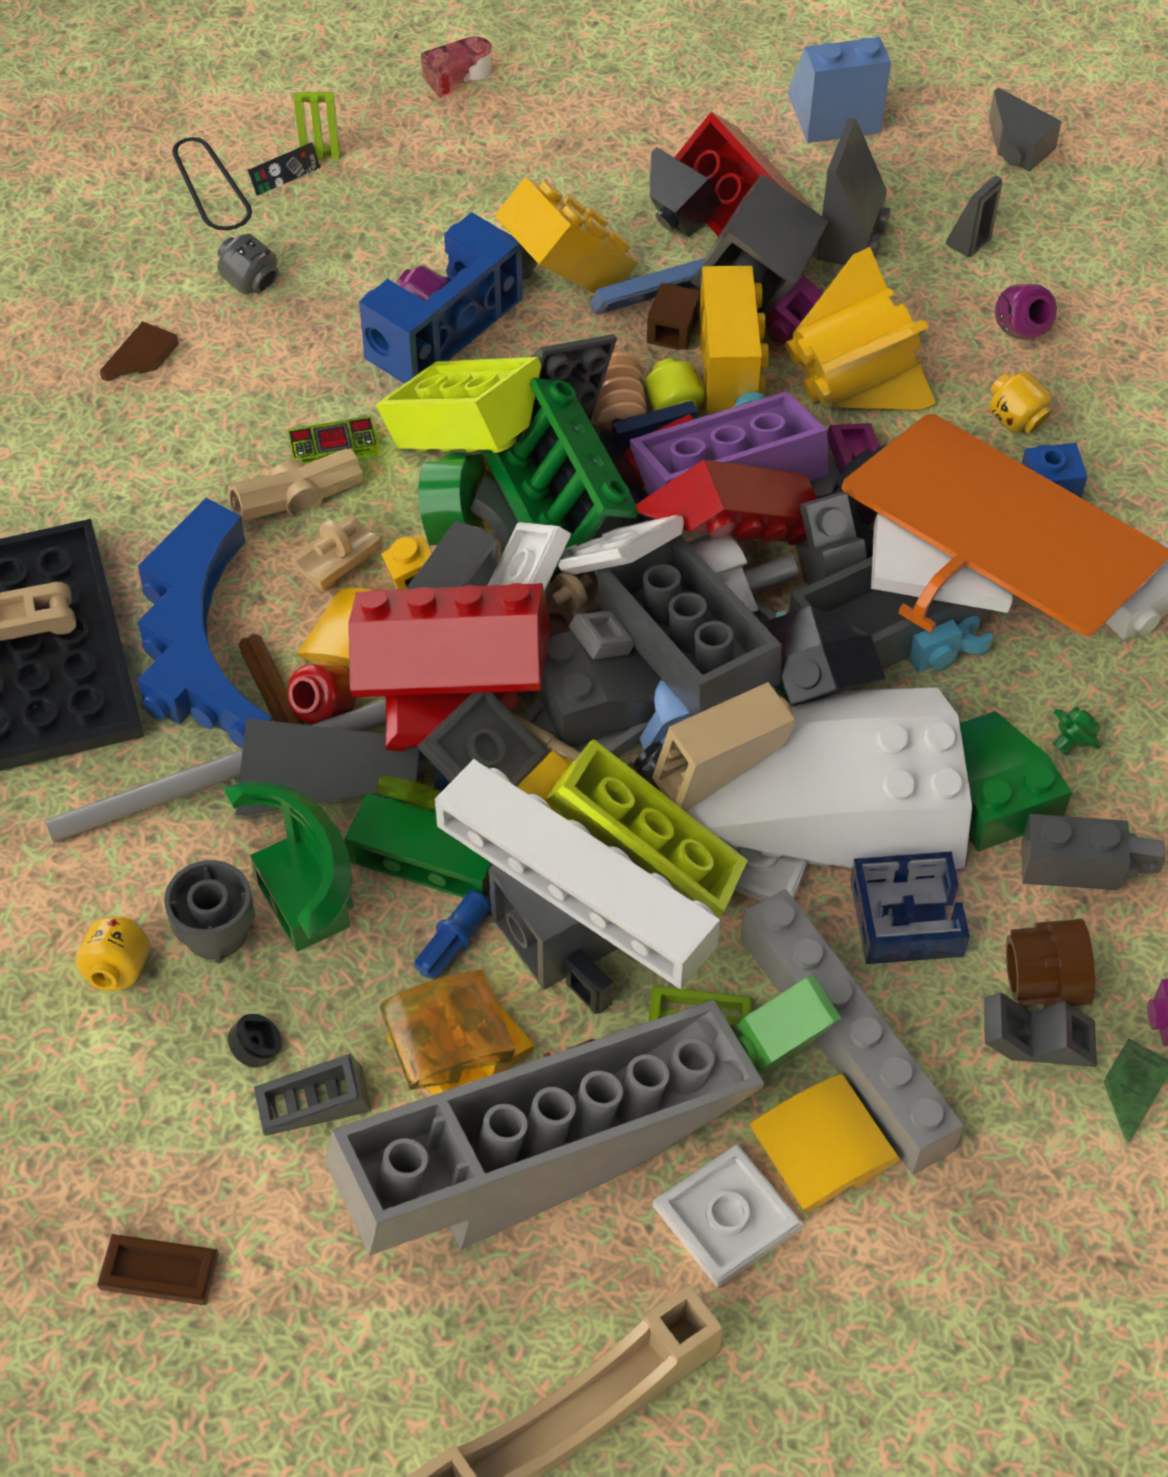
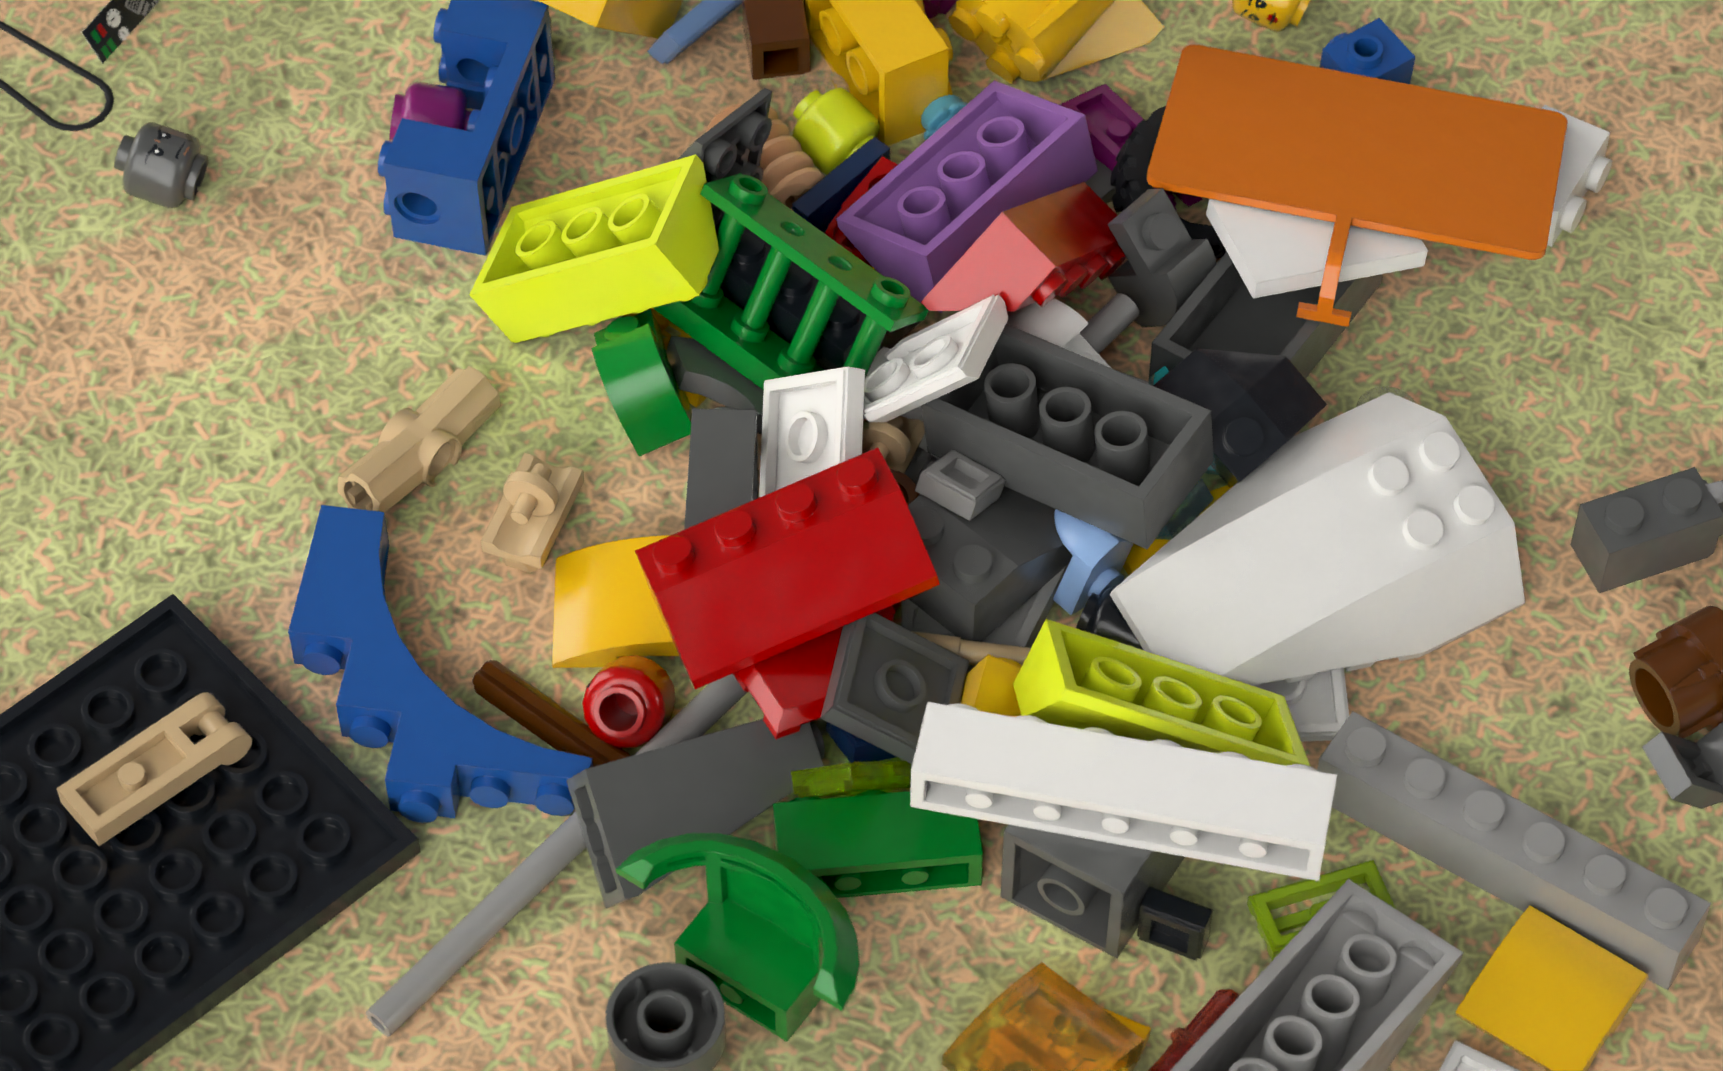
camera: 25 degrees left, 0 degrees up
(140, 352) = (85, 340): reddish brown tile -> none
(324, 439) = (423, 364): tile -> none
(405, 559) = (640, 487): yellow brick -> none
(453, 935) = (972, 937): blue axle -> none
(721, 745) = (1201, 565): tan slope -> none
(786, 1025) = (1451, 868): bright green slope -> none
(904, 909) = (1485, 684): clear blue piece -> none
(942, 646) = (1352, 345): medium azure plate -> none
(1007, 780) = (1533, 468): green slope -> none
(1076, 729) = (1564, 379): green plant -> none

